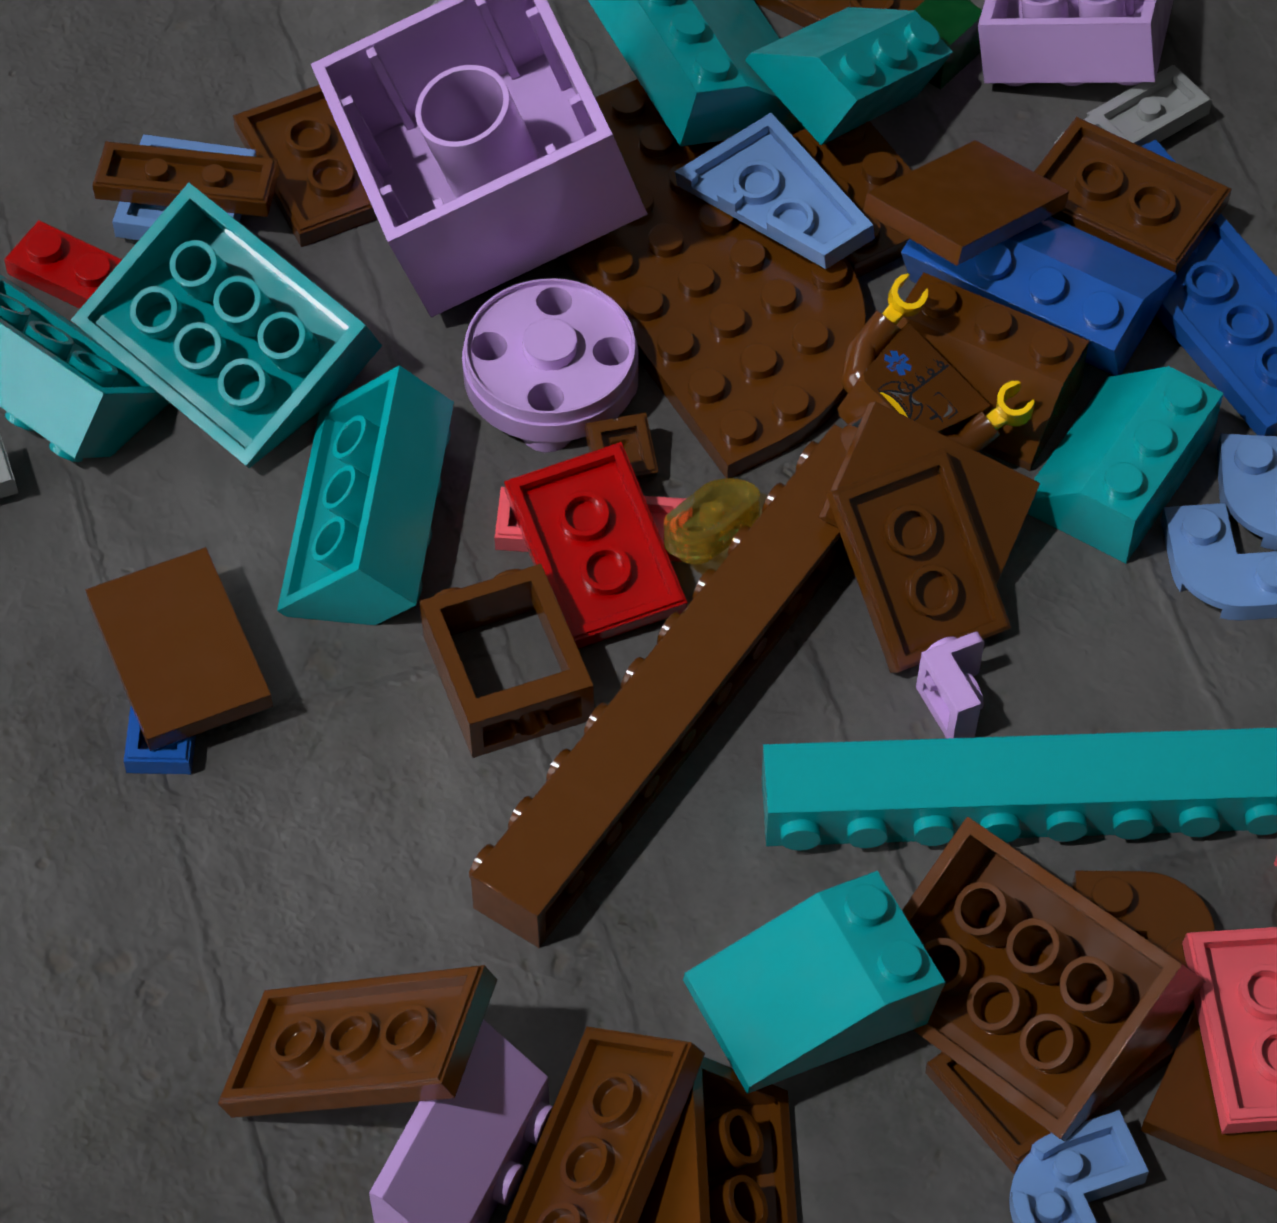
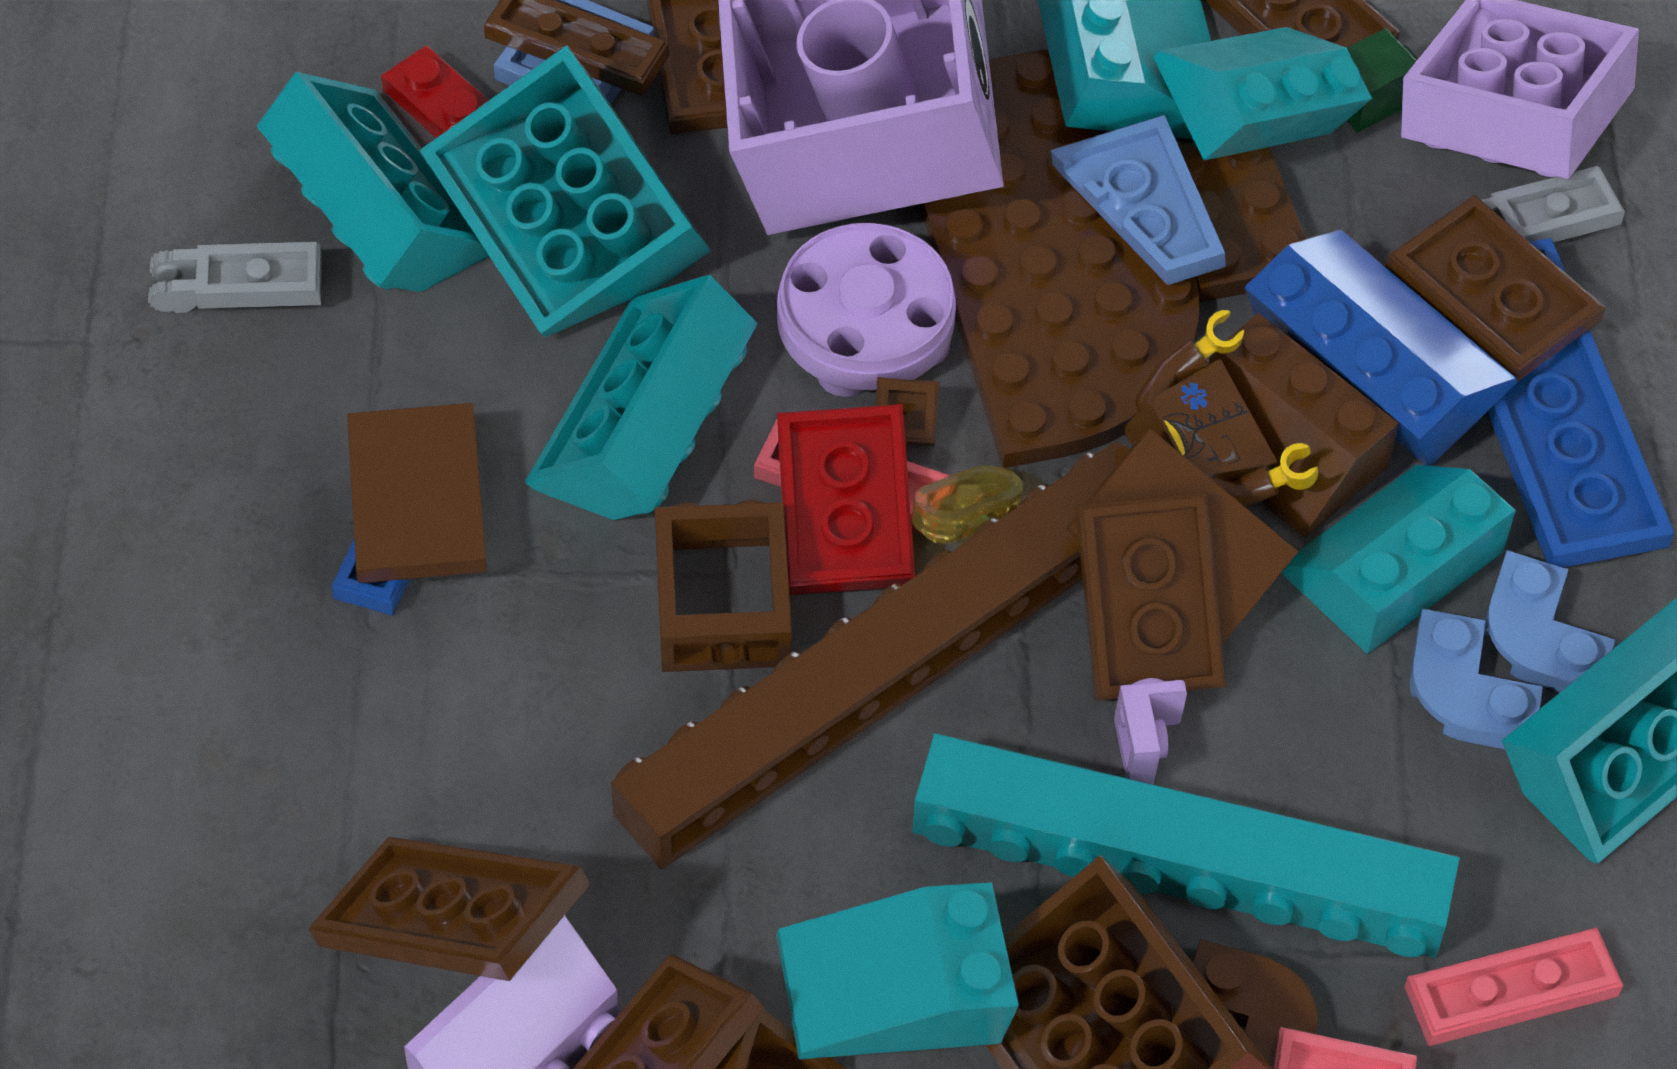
camera: 15 degrees right, 0 degrees up
(965, 202) = (1321, 253): reddish brown tile -> none

